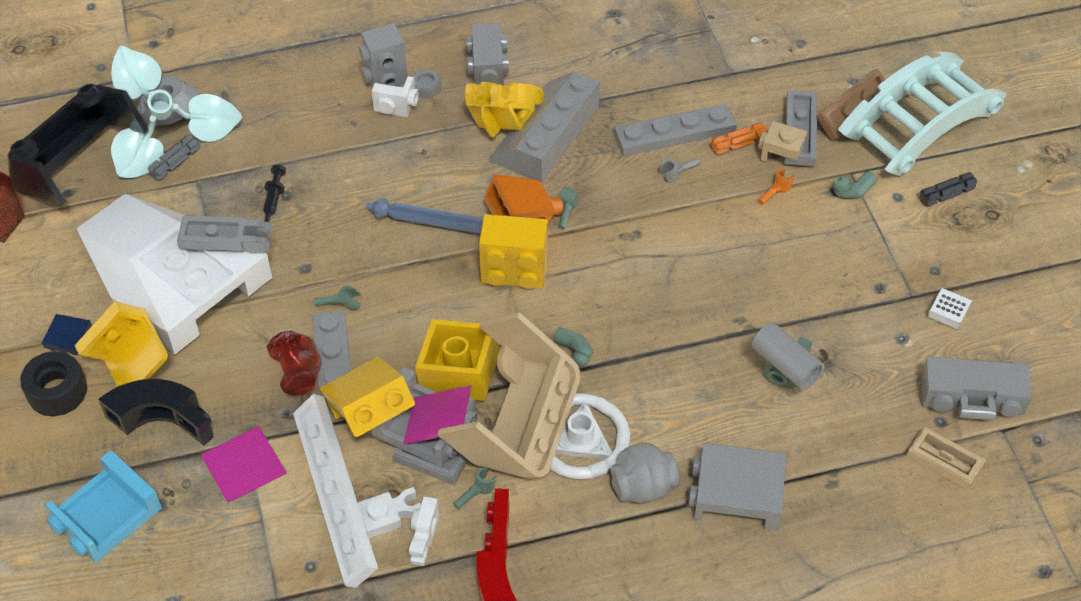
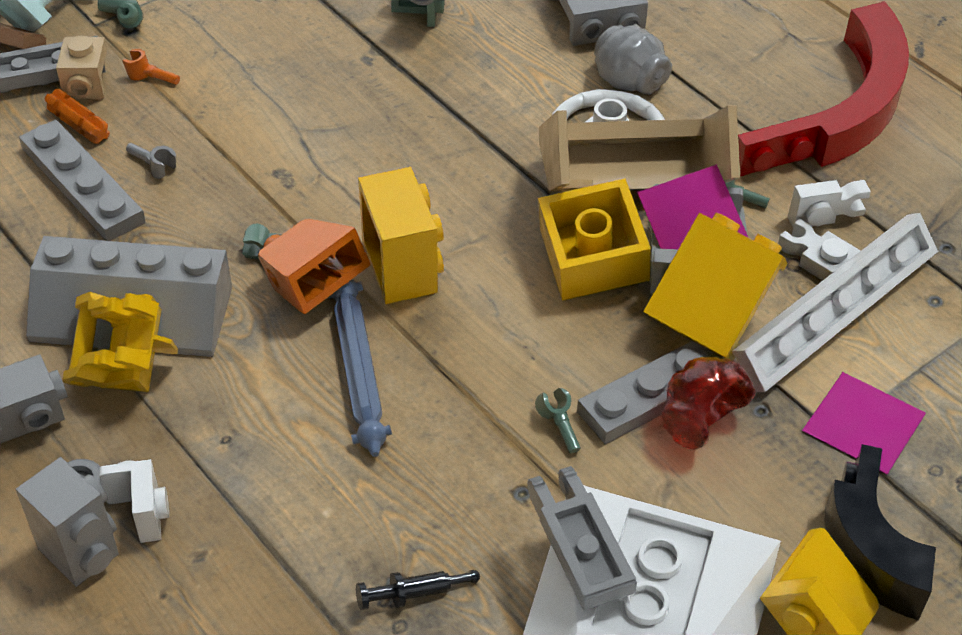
camera: 115 degrees left, 5 degrees down
(575, 341) = (484, 167): sand green arm -> none

